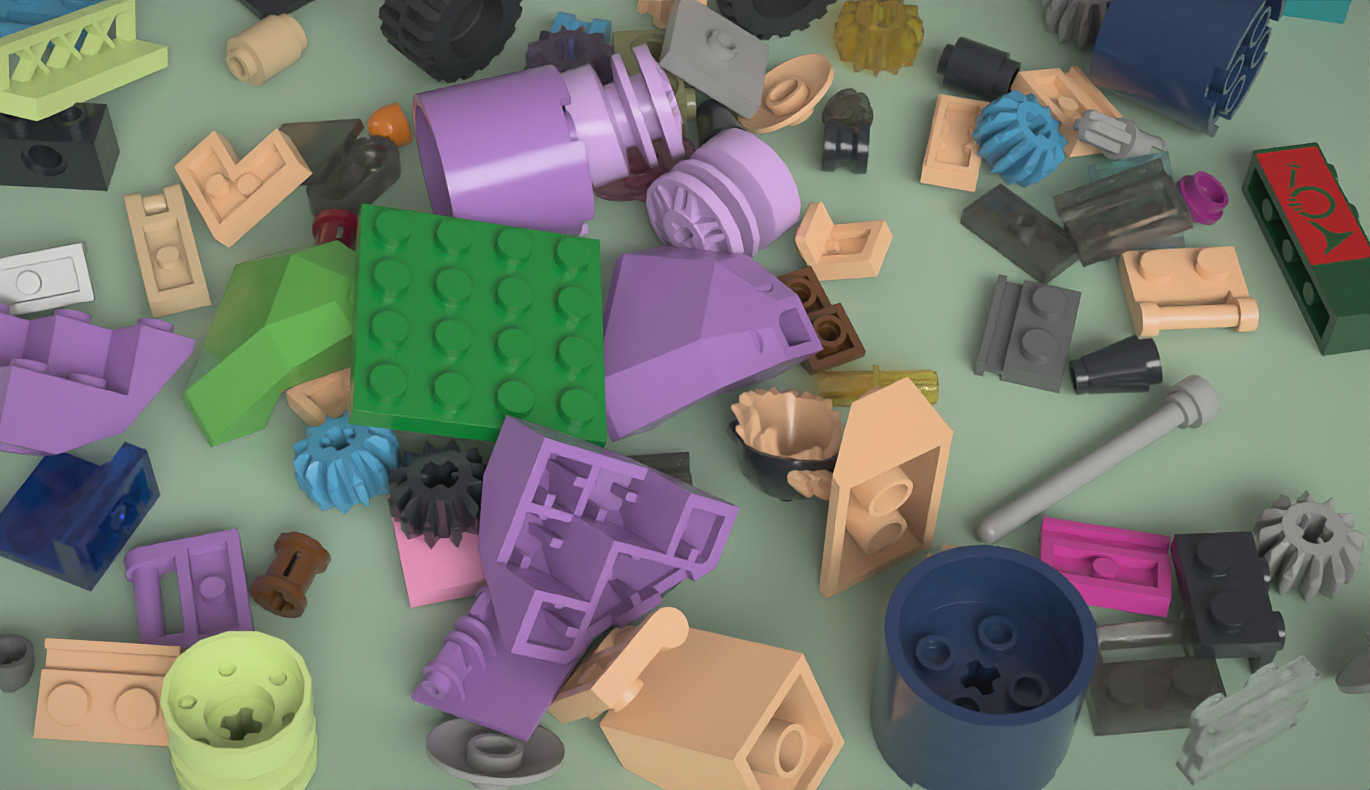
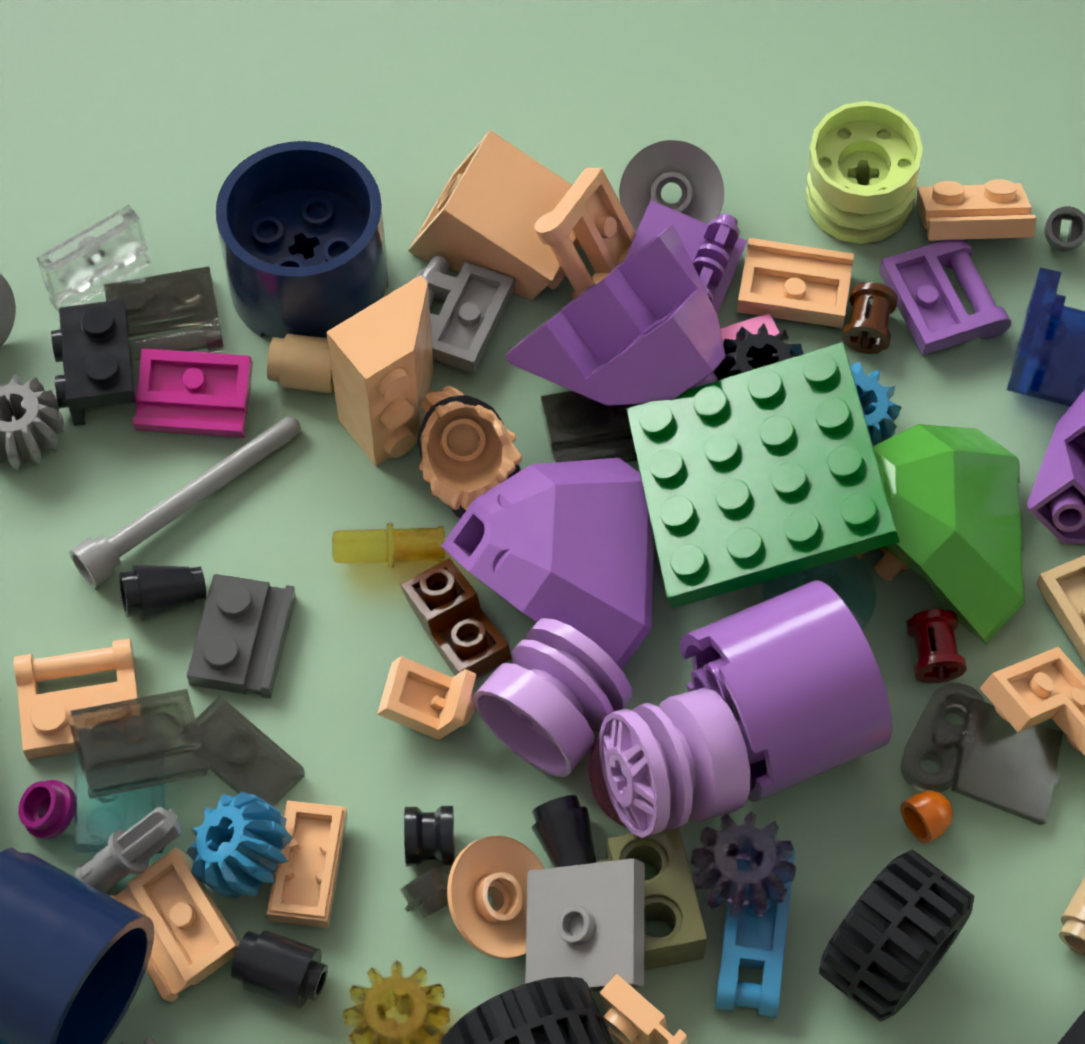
camera: 175 degrees right, 10 degrees up
(367, 630) = (795, 282): none -> light nougat plate
(789, 606) = (469, 313): none -> light grey plate

